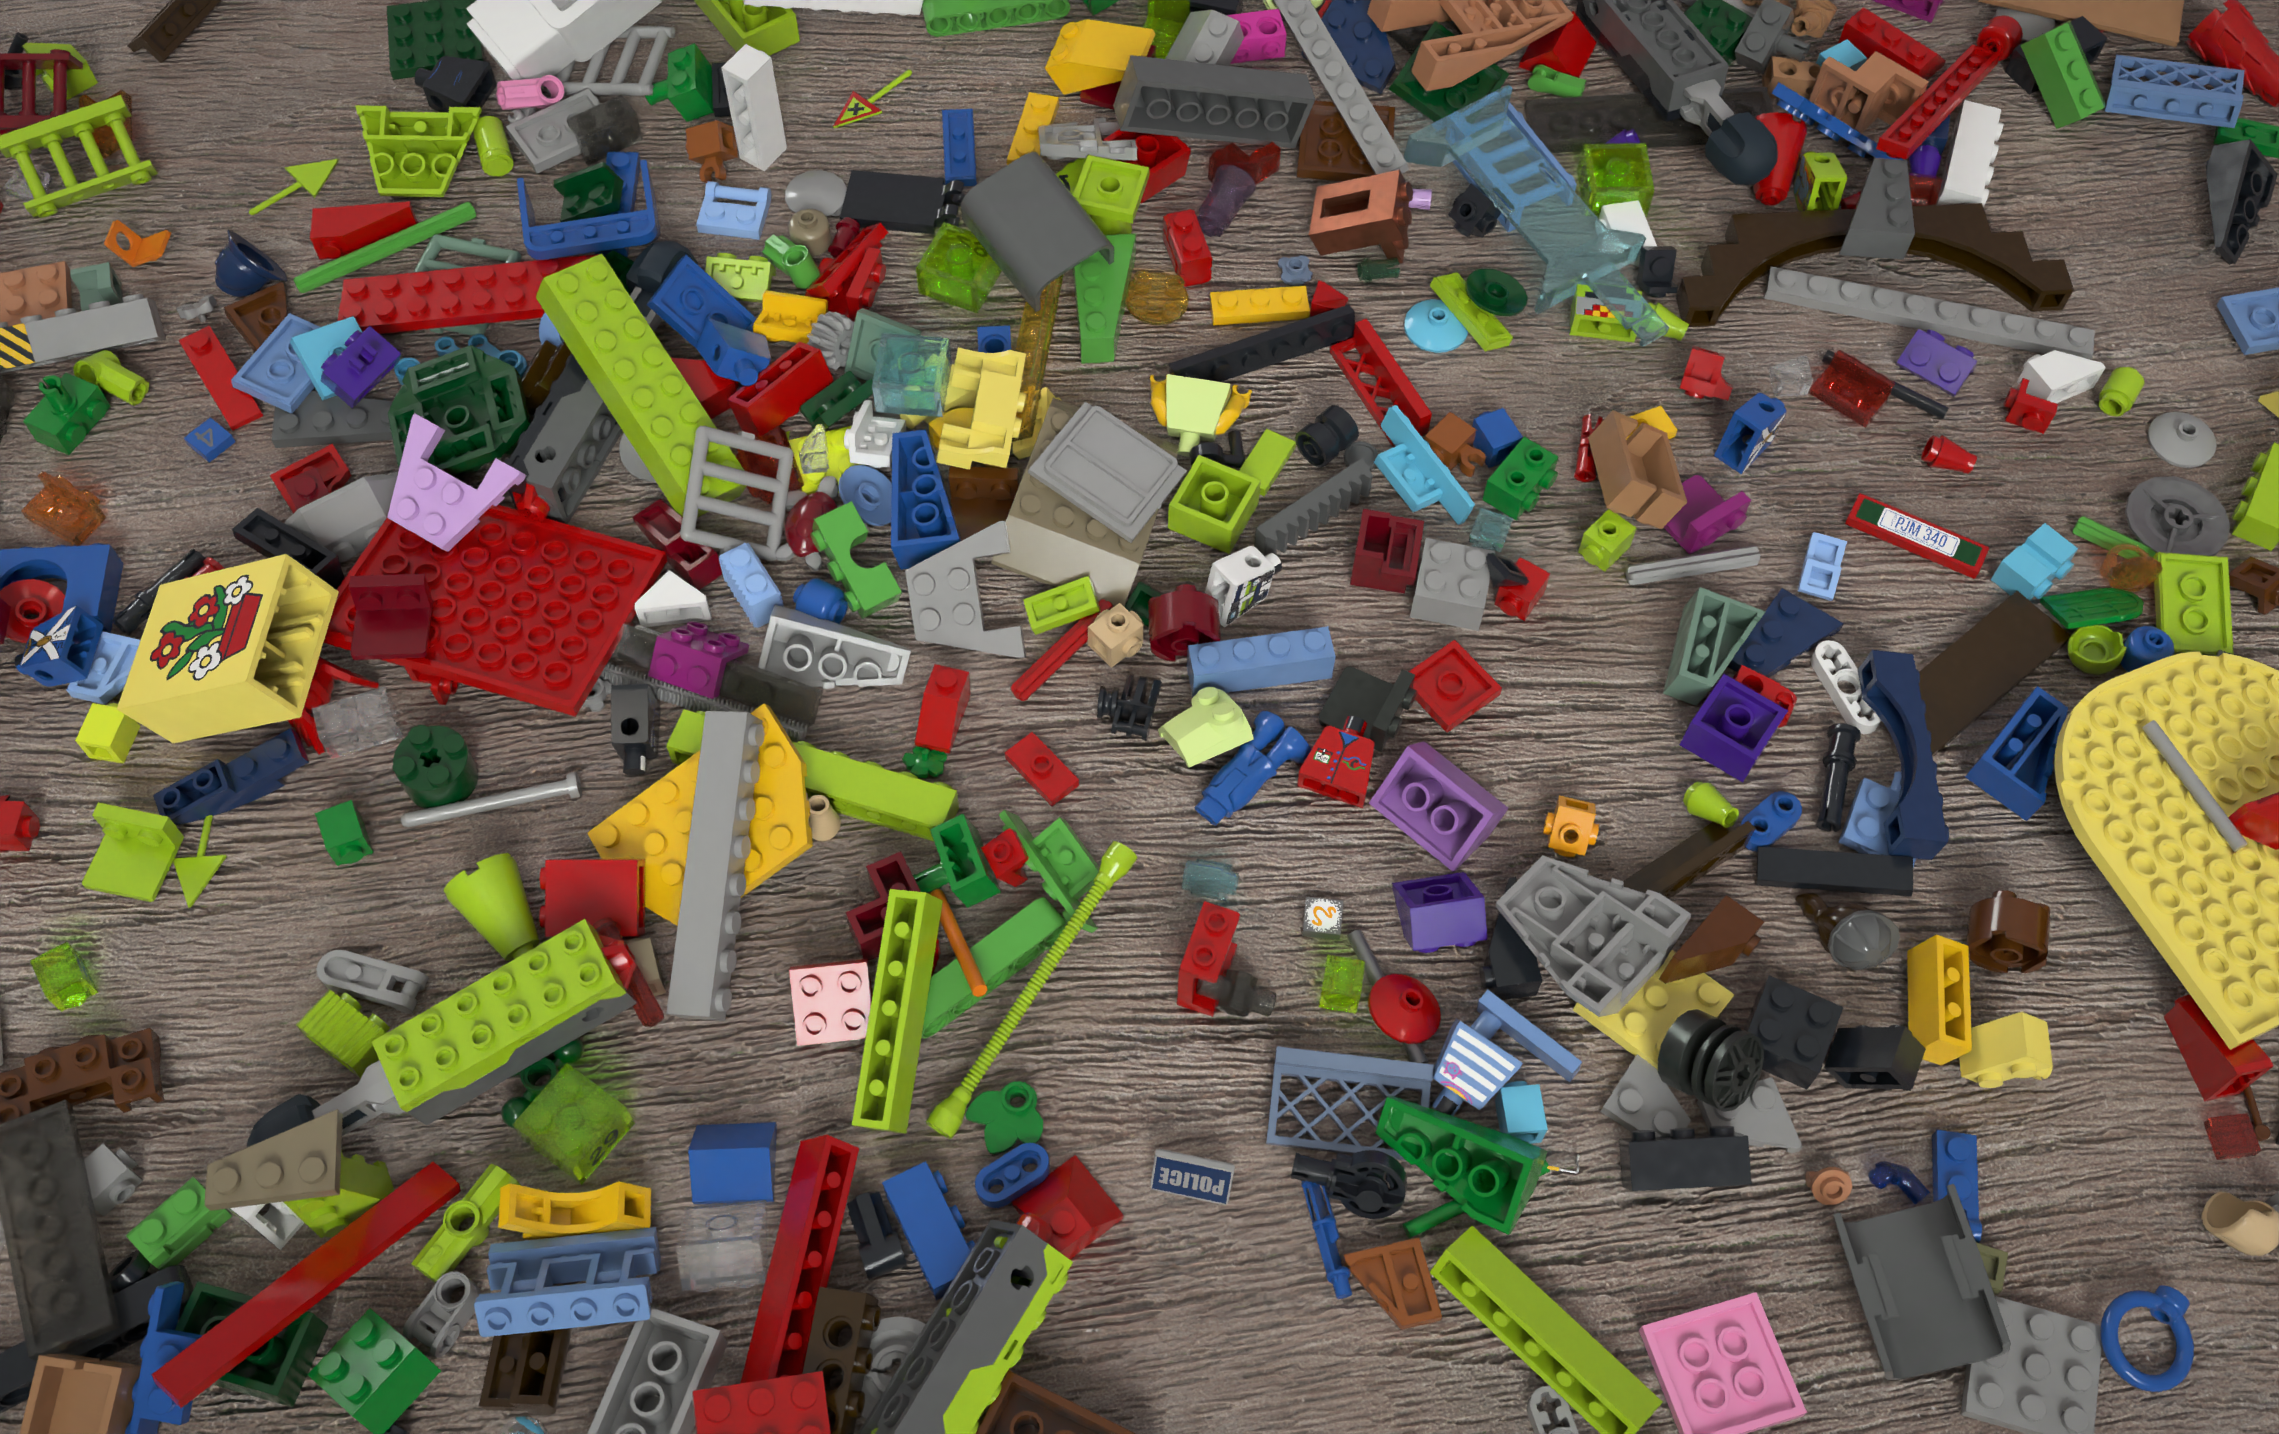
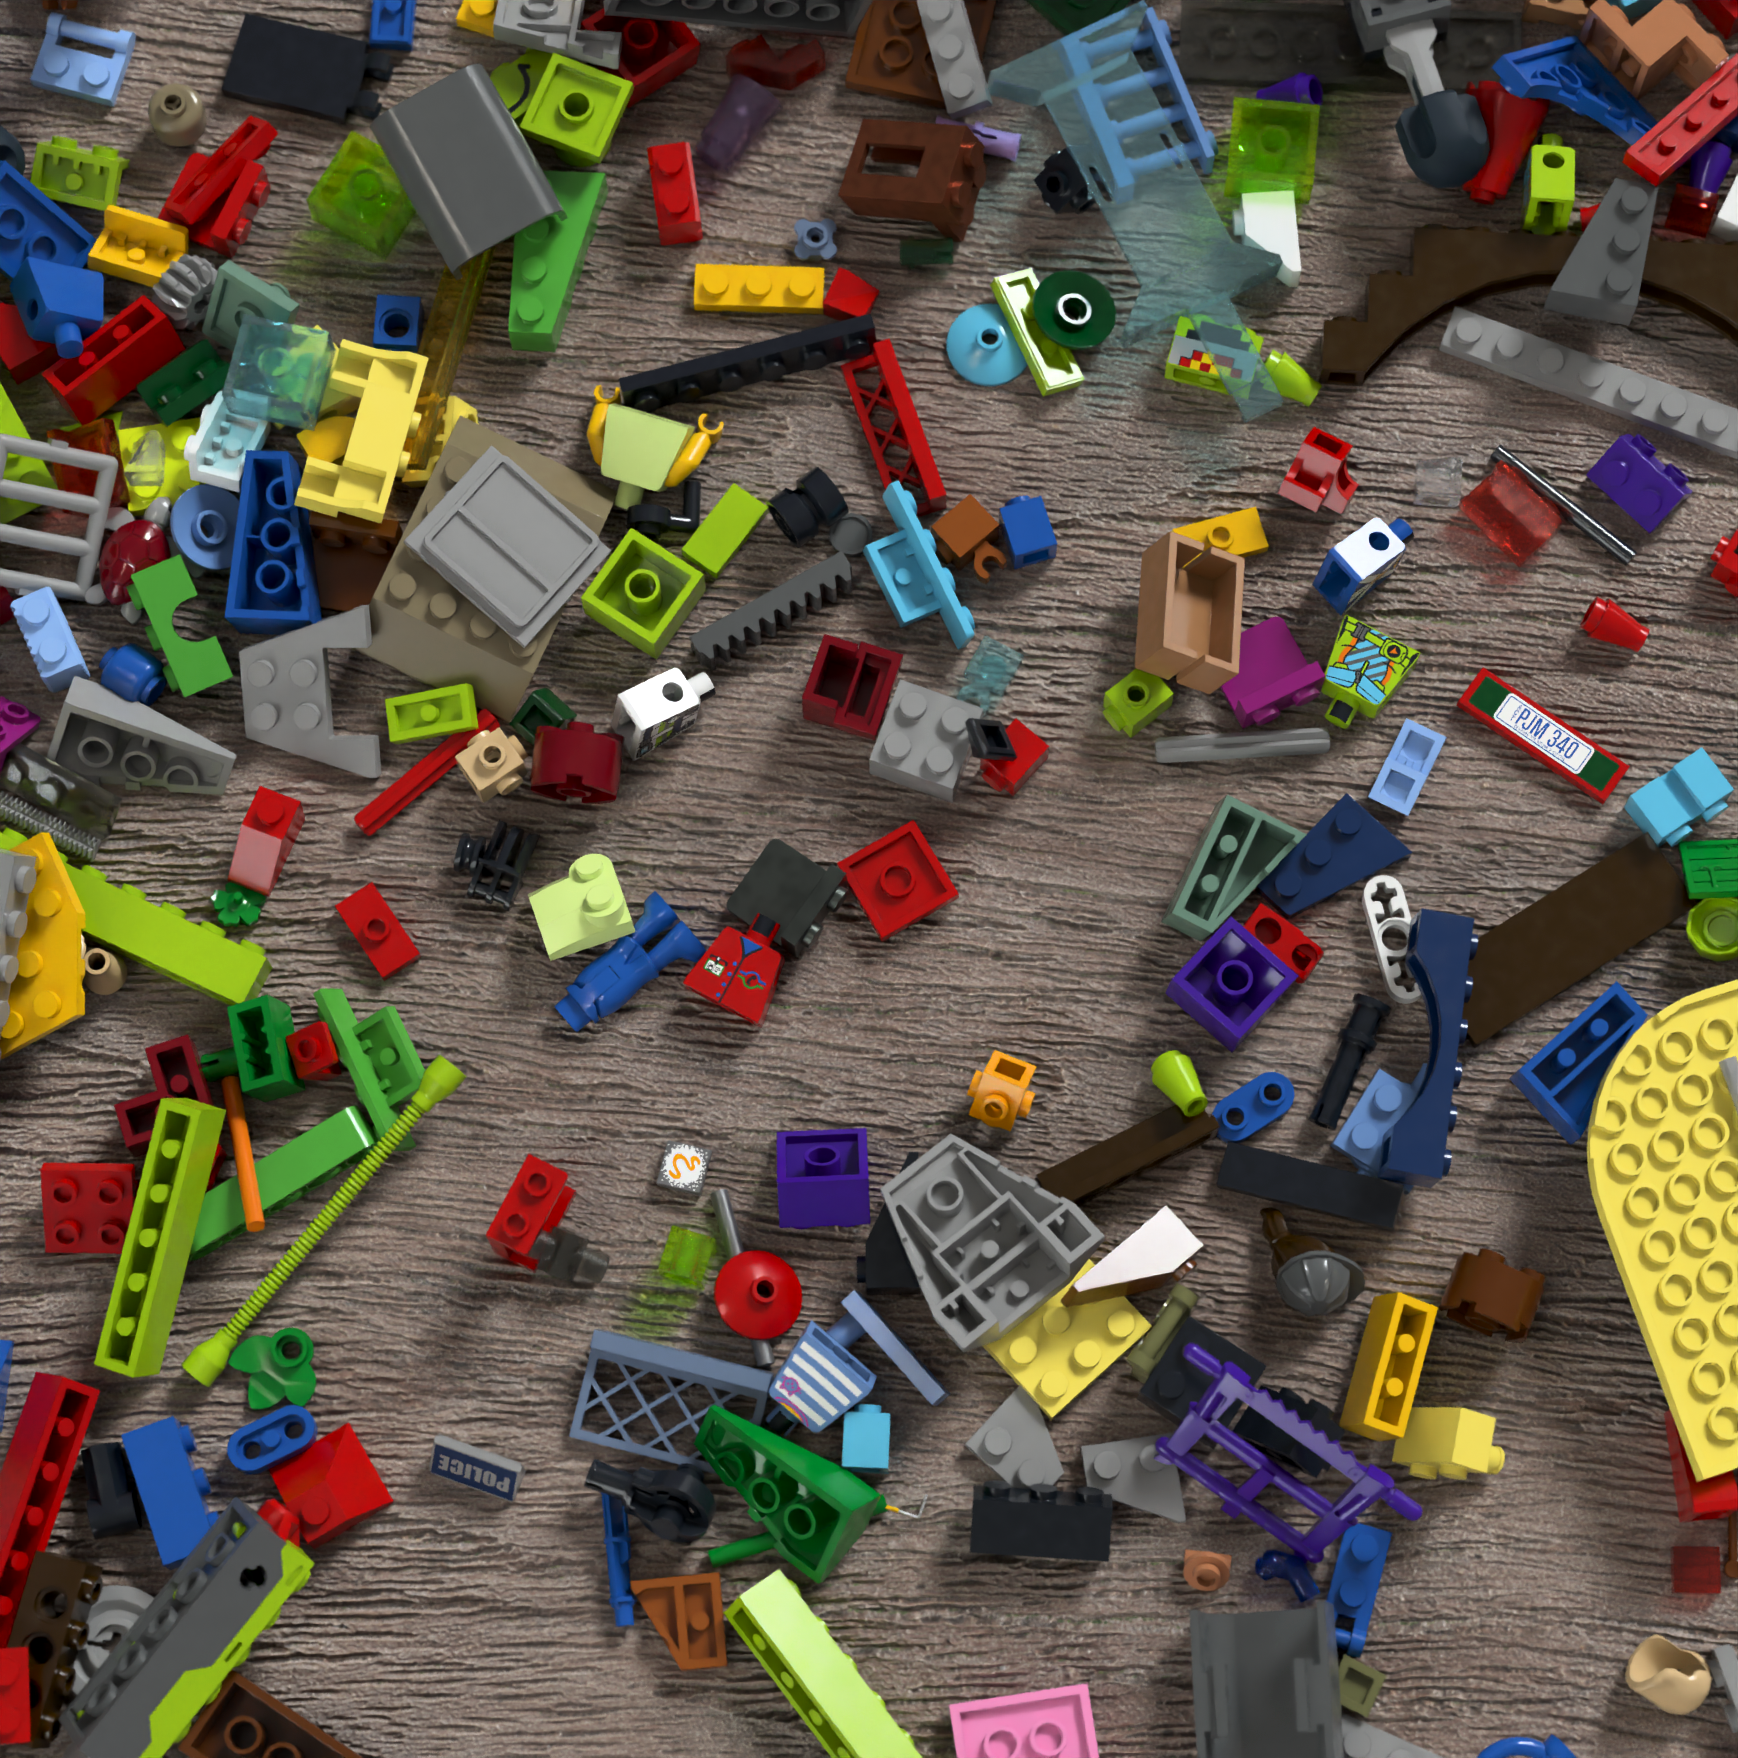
camera: 10 degrees right, 15 degrees up
(792, 260) = (149, 156): bright green piece -> none
(816, 191) = (193, 46): light grey dish -> none
(847, 230) = (224, 121): dark red pin -> none
(1156, 297) = (624, 264): clear yellow dish -> none
(1210, 879) = (556, 1104): clear light blue brick -> none
(1261, 661) = (665, 822): medium blue brick -> none
(1437, 805) = (849, 1040): medium lavender slope -> none
(1521, 478) = (1045, 600): green brick -> none
(1585, 465) = (1132, 585): red pin -> none
(1657, 270) = (1296, 302): black bracket -> none
(1710, 1060) = (1092, 1411): pearl dark grey wheel -> none
(1750, 986) = (1167, 1325): none -> olive plate
(1775, 502) = (1364, 671): none -> torso
(1932, 1122) = (1335, 1518): none -> dark purple piece

